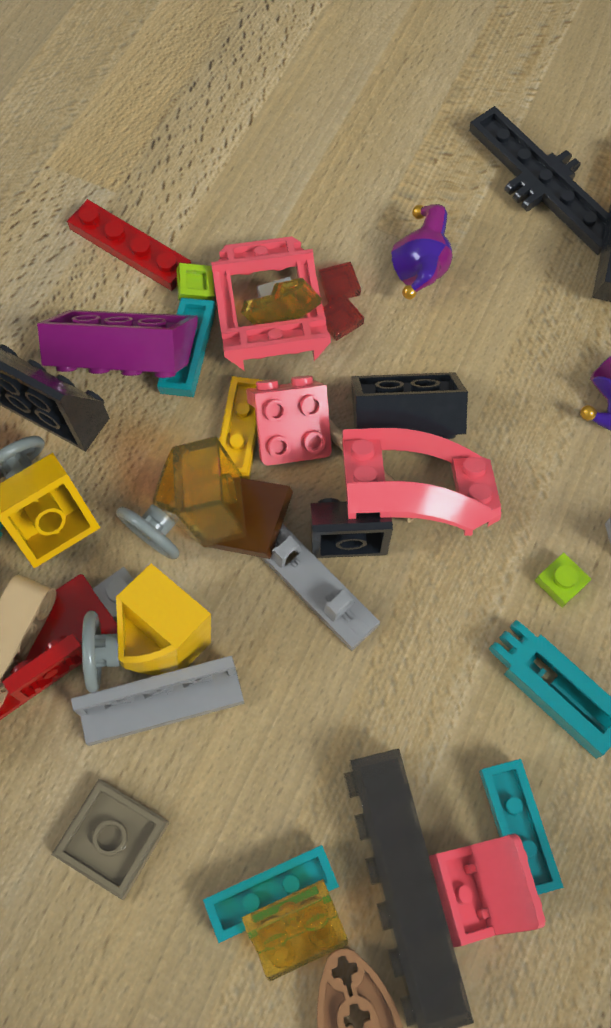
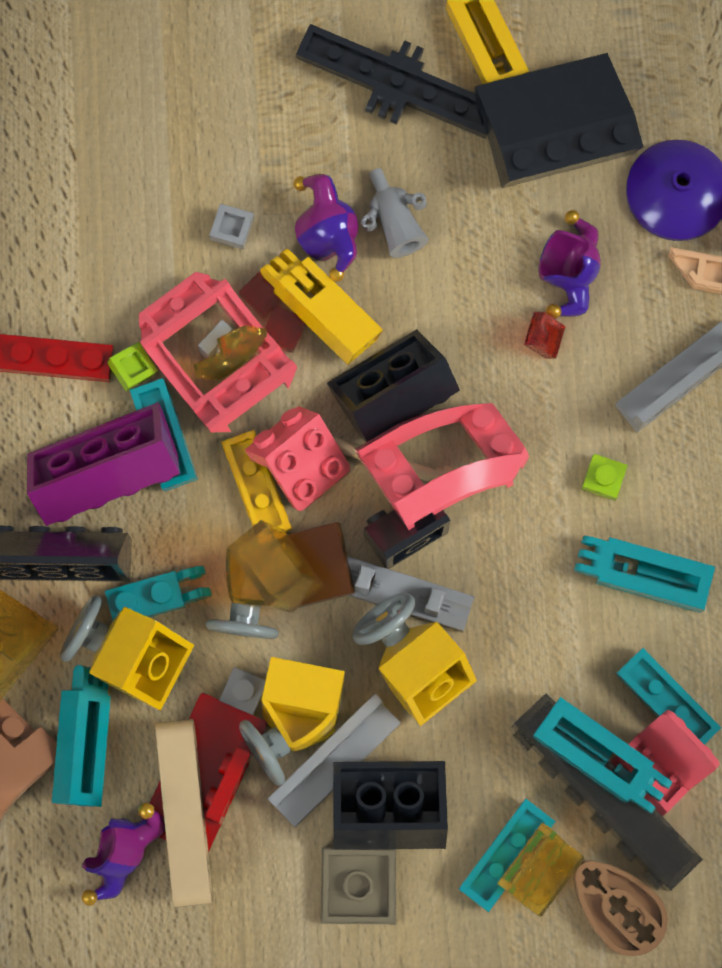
camera: 30 degrees left, 10 degrees up
(102, 472) = (157, 594): none -> teal hinge
(183, 774) = (389, 805): none -> black slope
(290, 651) = (419, 662): none -> yellow piece
(343, 220) = (231, 226): none -> light grey plate
(384, 316) = (329, 313): none -> yellow hinge
(414, 829) = (588, 749): none -> teal hinge
(485, 285) = (399, 225): none -> light grey piece
(569, 428) = (544, 335): none -> clear red plate

